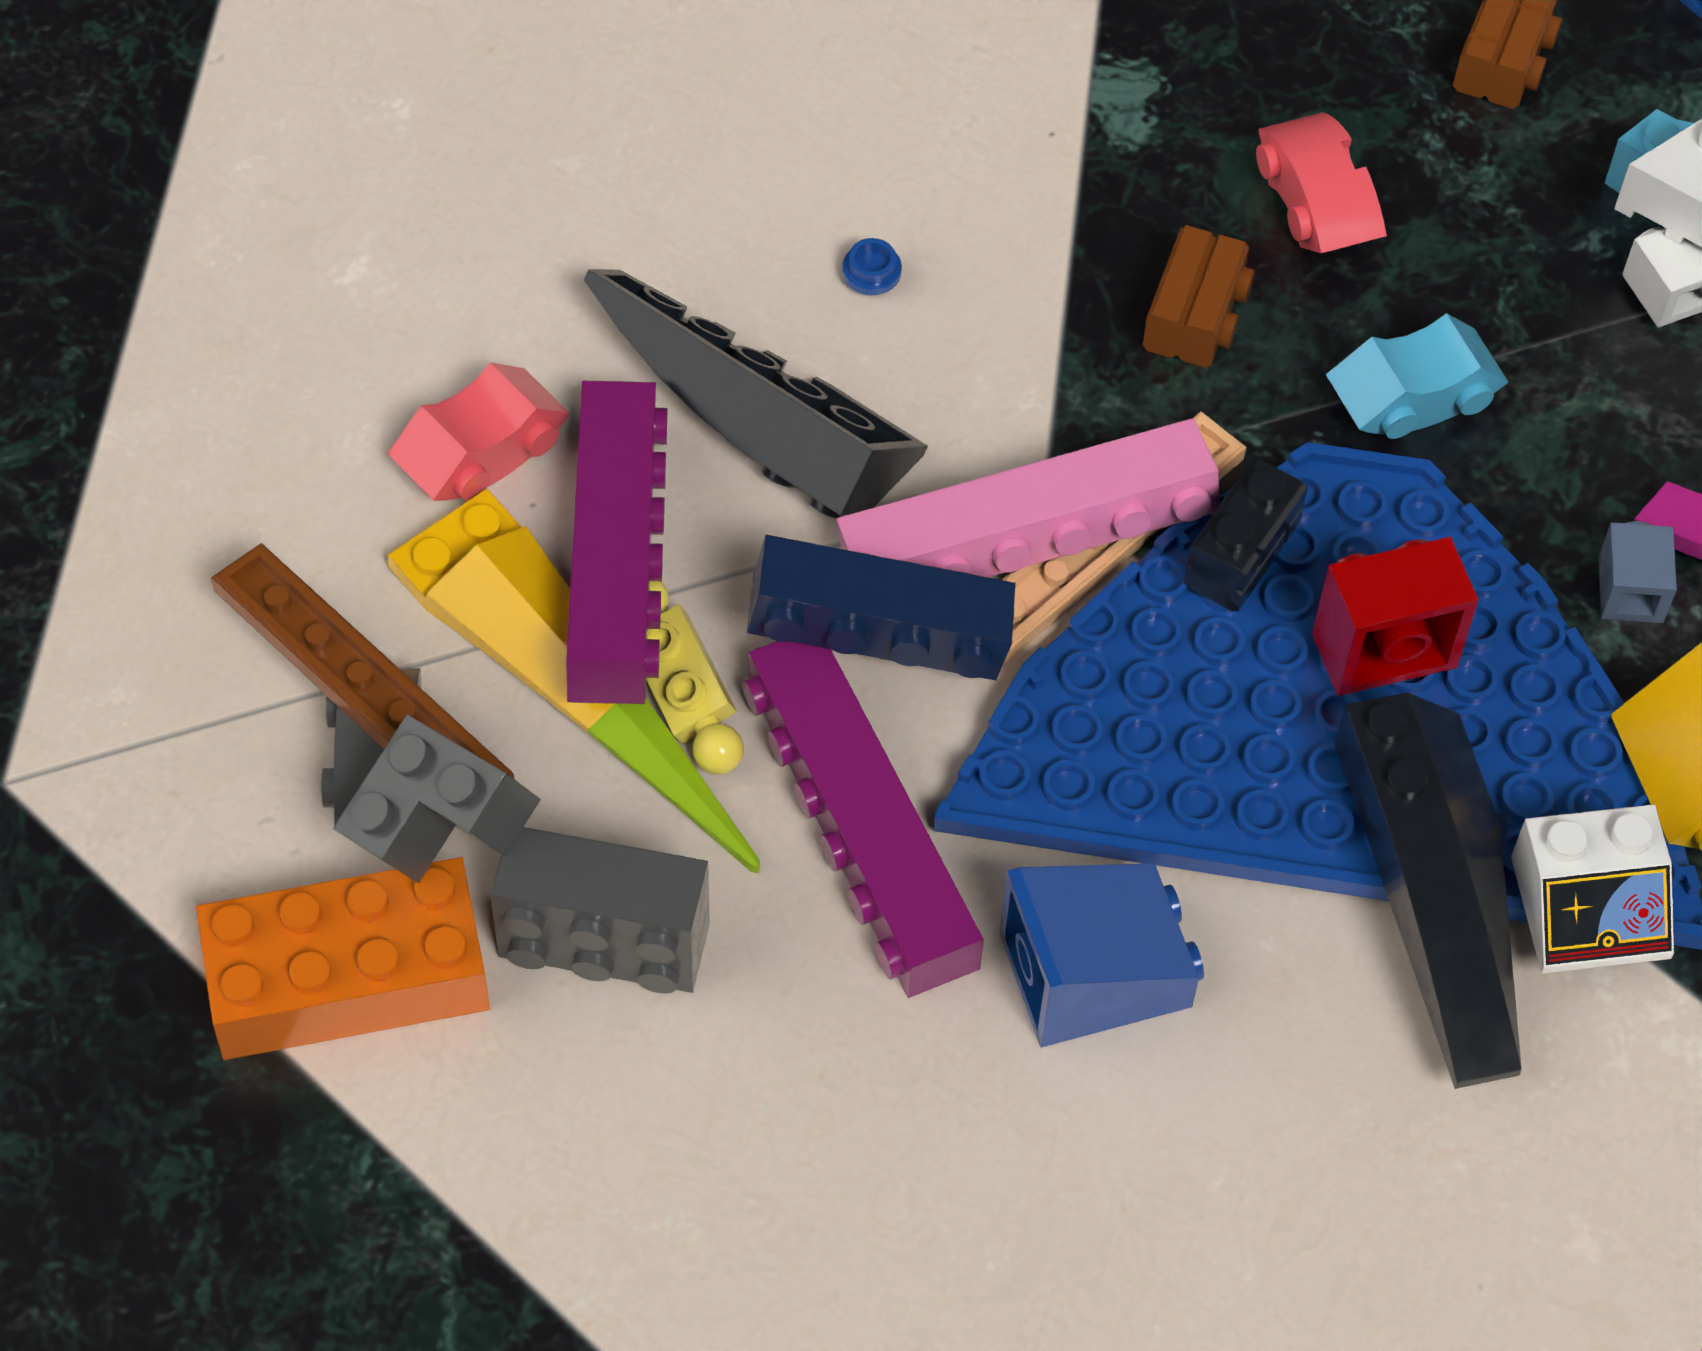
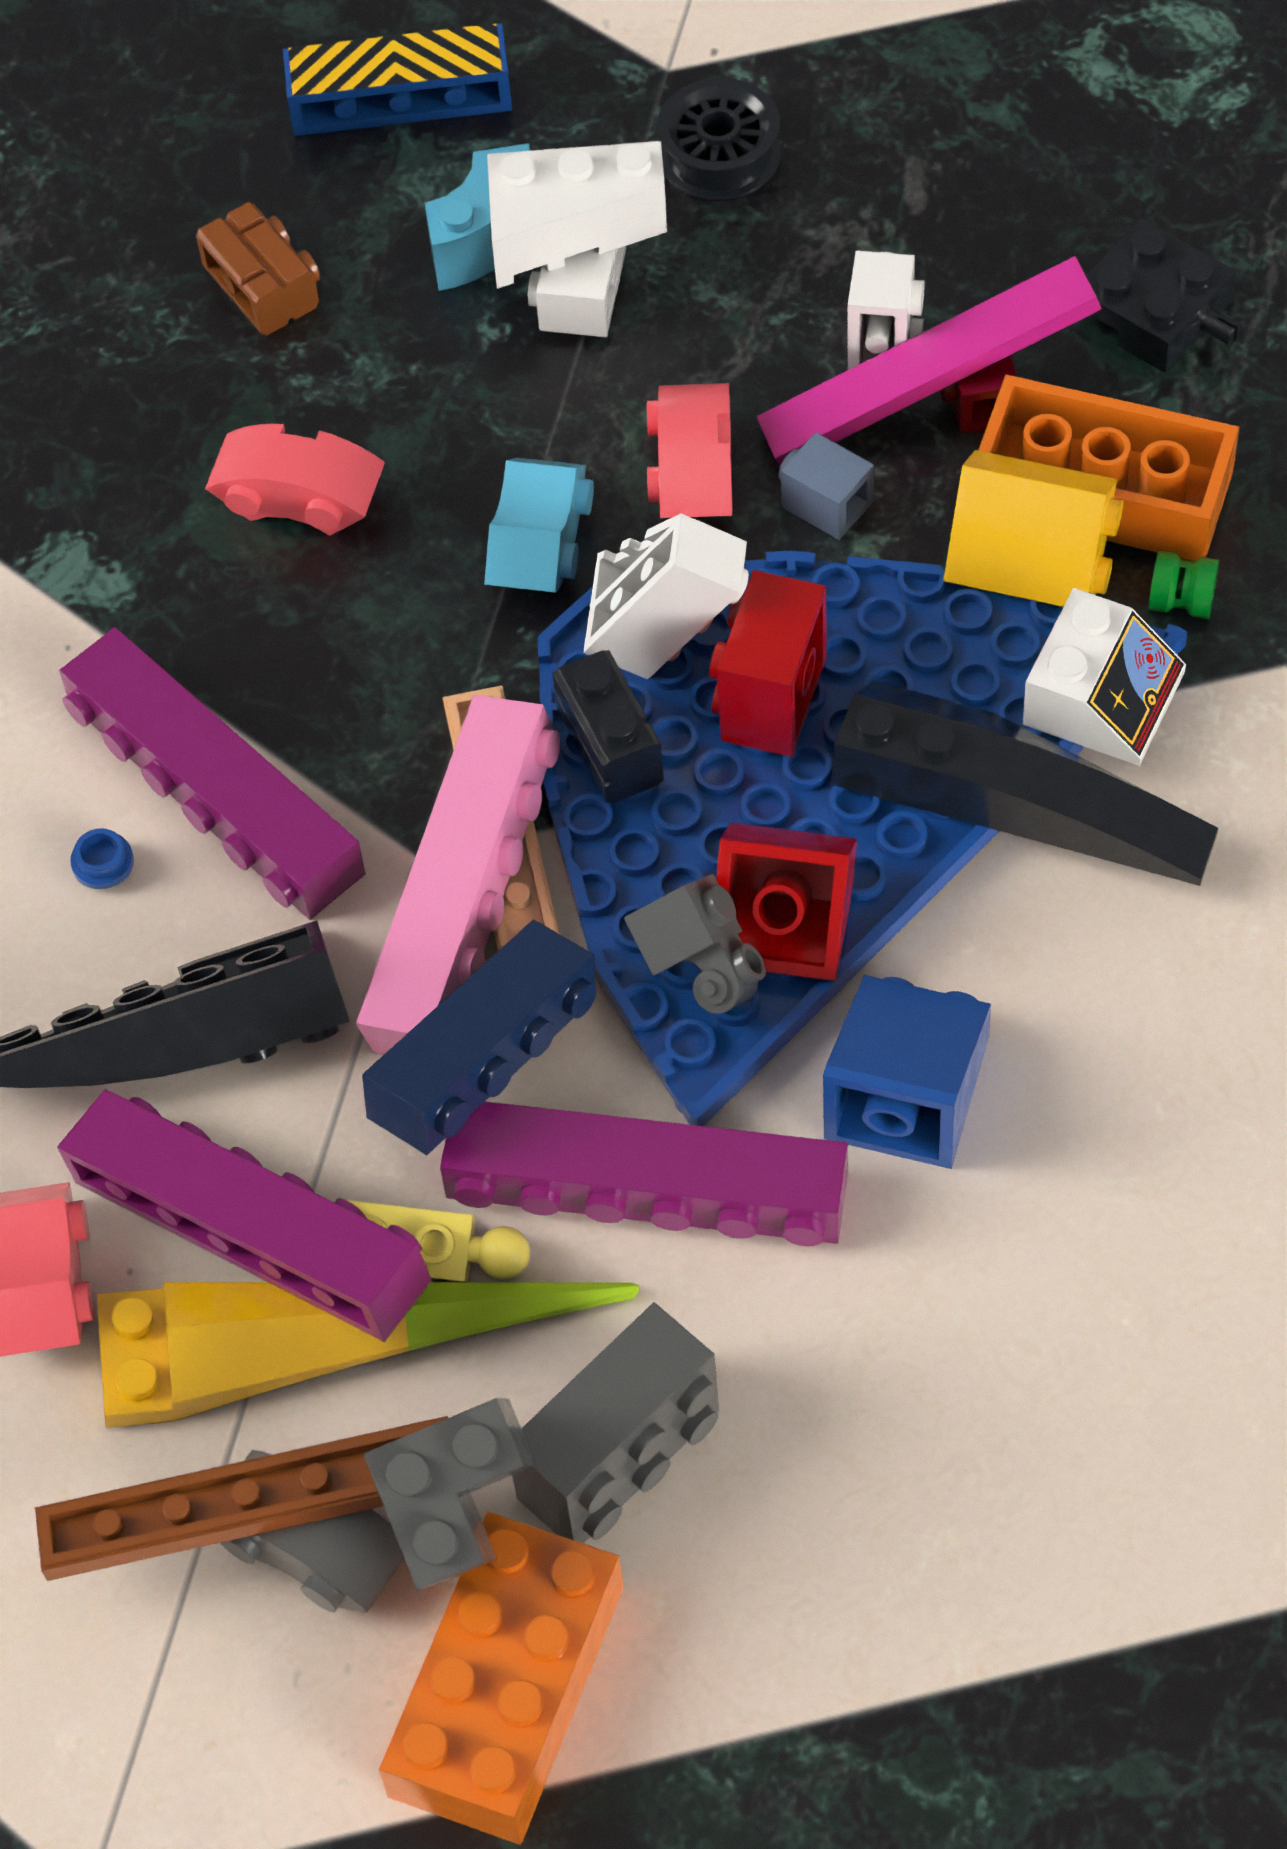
camera: 50 degrees left, 0 degrees up
(1000, 293) = (212, 774): none -> magenta brick
(1092, 709) = (701, 928): none -> dark grey brick
(1179, 758) = (789, 895): none -> red slope
(1197, 296) = (332, 632): dark orange brick -> none
(1383, 493) = (663, 592): none -> white wedge
(1584, 450) = (692, 450): none -> coral brick

